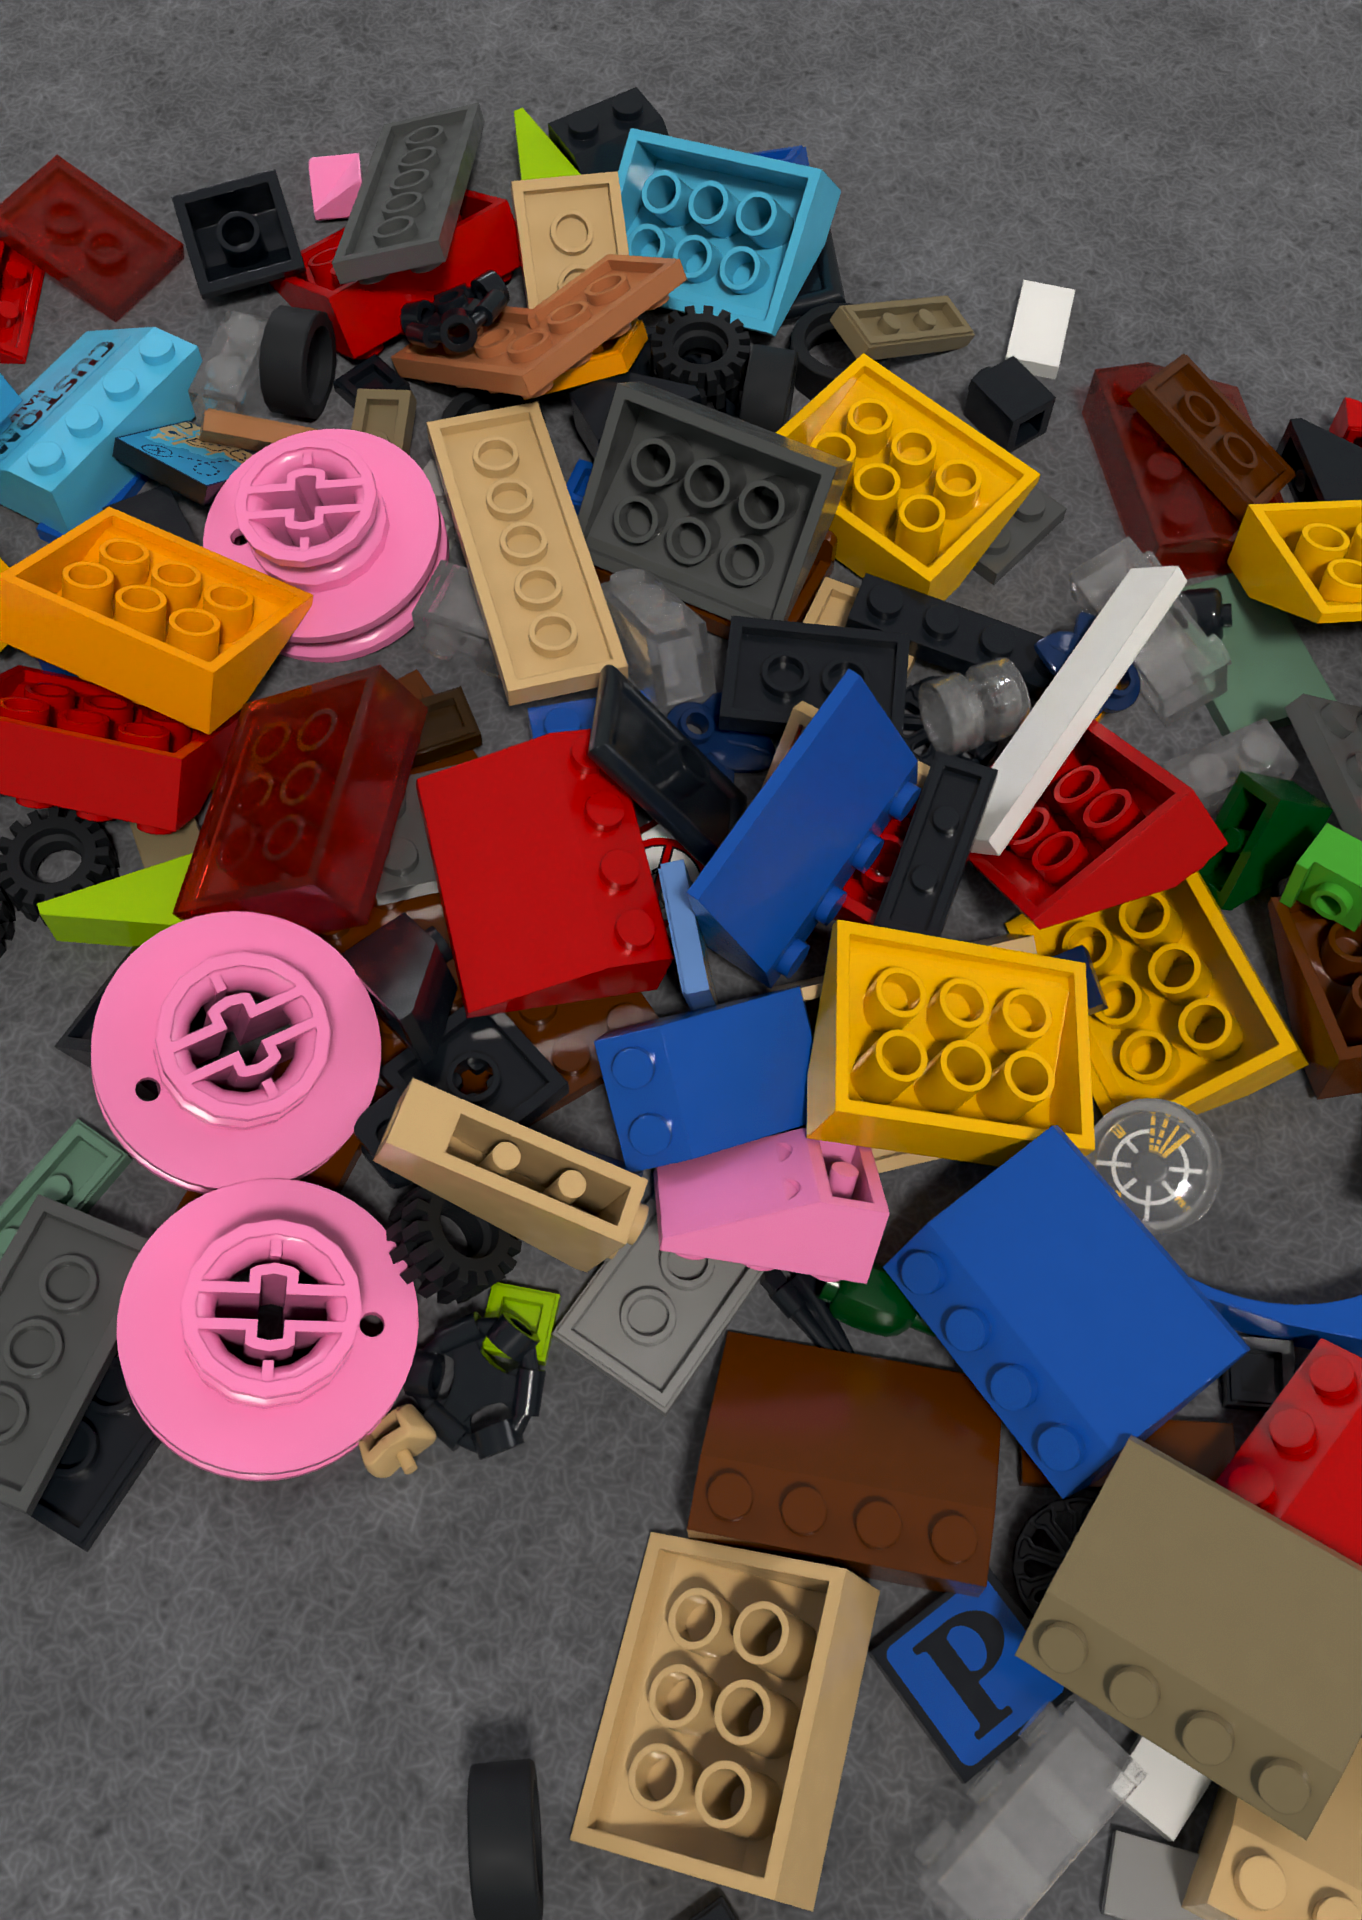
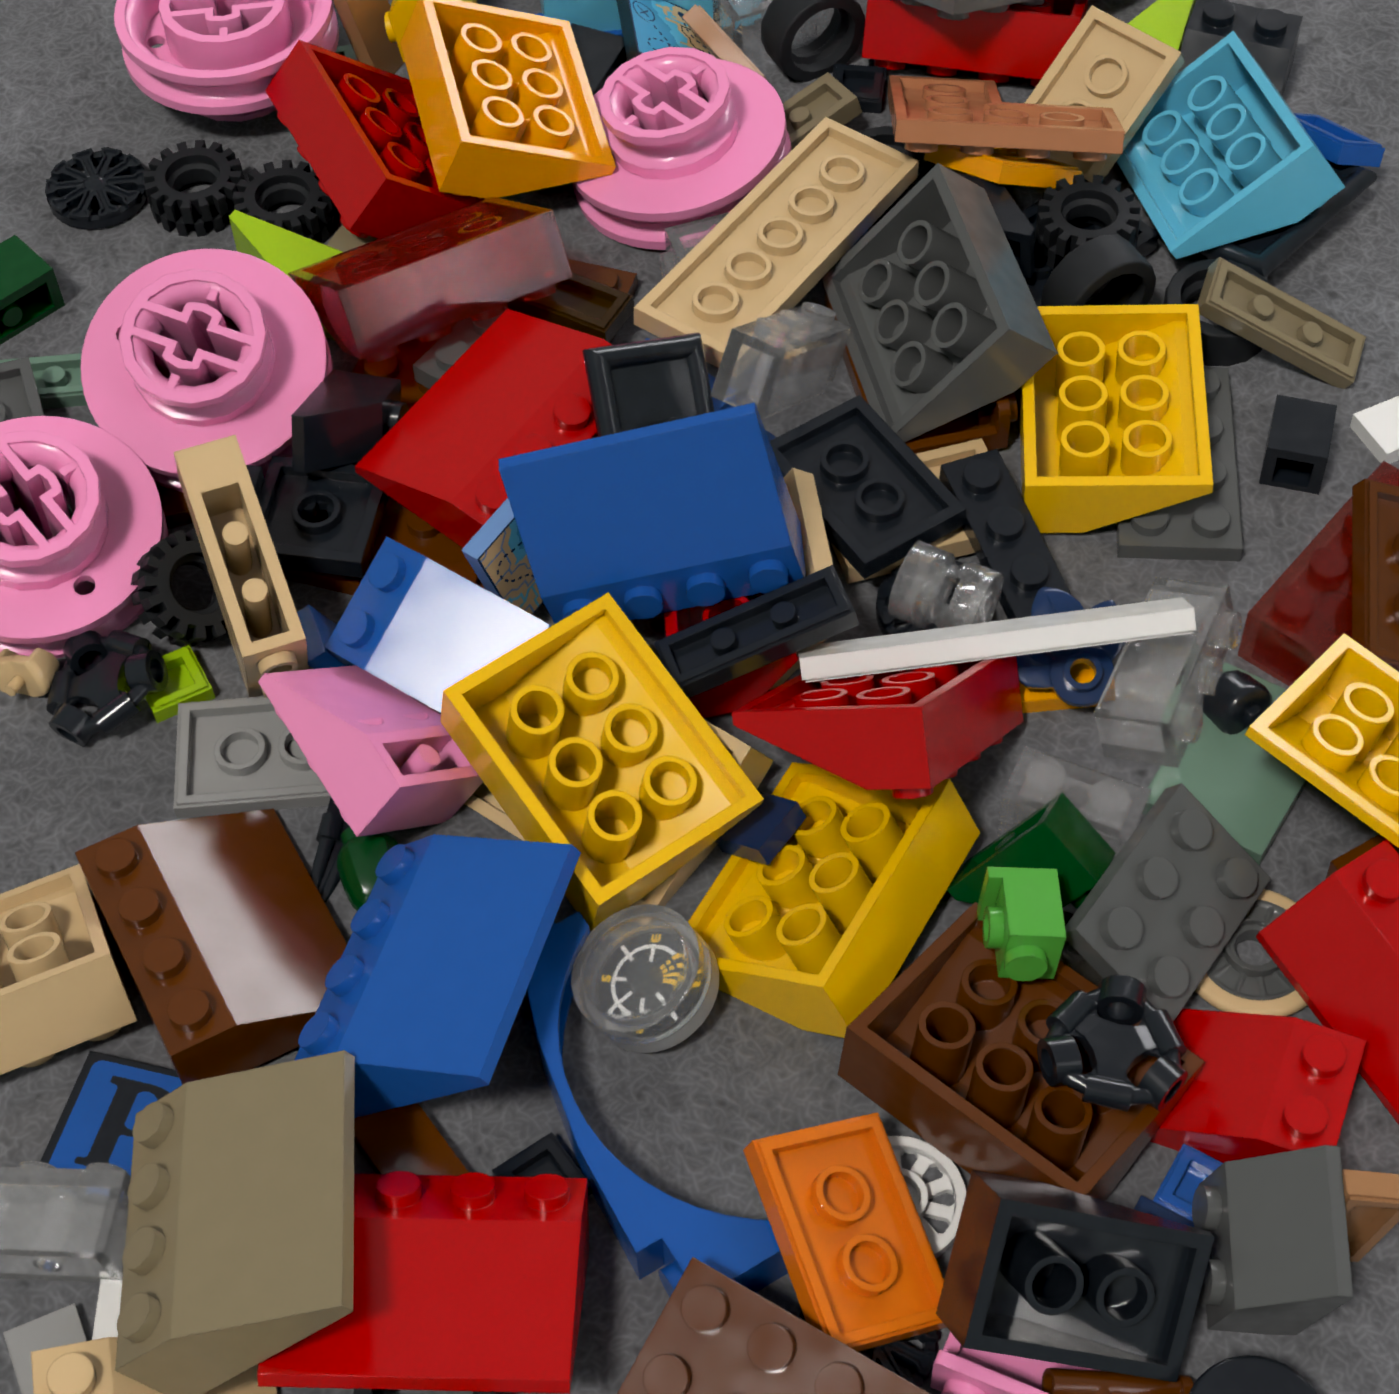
camera: 55 degrees right, 10 degrees down
(473, 306) = (951, 68): black piece -> none

